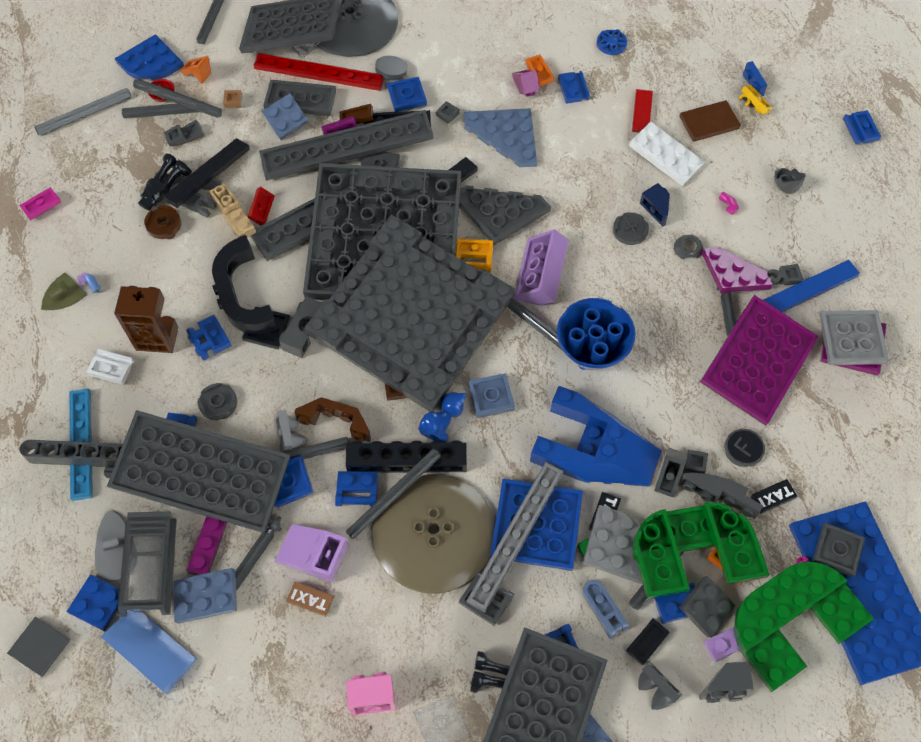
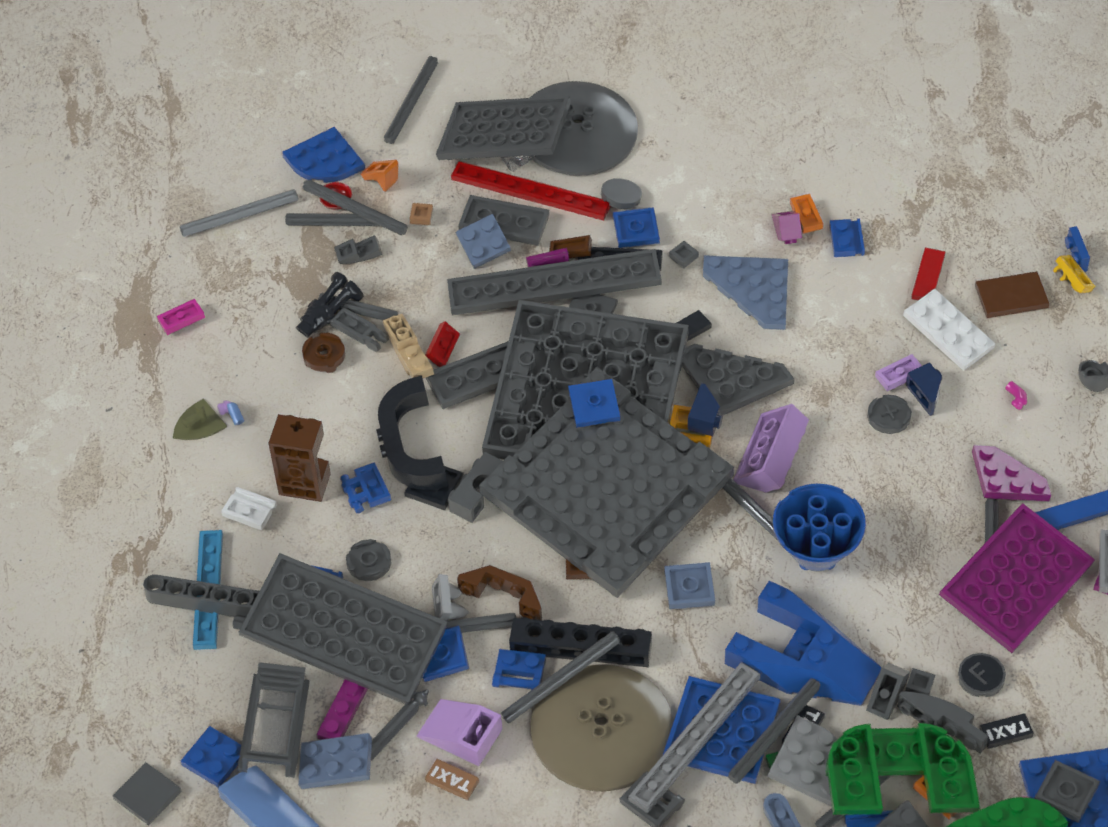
camera: 10 degrees right, 10 degrees down
(110, 546) = (233, 701): light grey shield -> none
(206, 173) = (382, 299): black tile -> none
(393, 246) = (594, 403): none -> blue plate
(435, 423) = (617, 608): blue animal -> none
(484, 244) = (705, 413): none -> dark blue slope
(582, 523) = (774, 731): none -> dark grey axle
(611, 42) = (904, 186): blue wheel -> none
(632, 193) = (896, 373): none -> lavender plate
(681, 251) = (946, 446): dark grey piece -> none
(787, 274) = (1072, 485): dark grey plate -> none

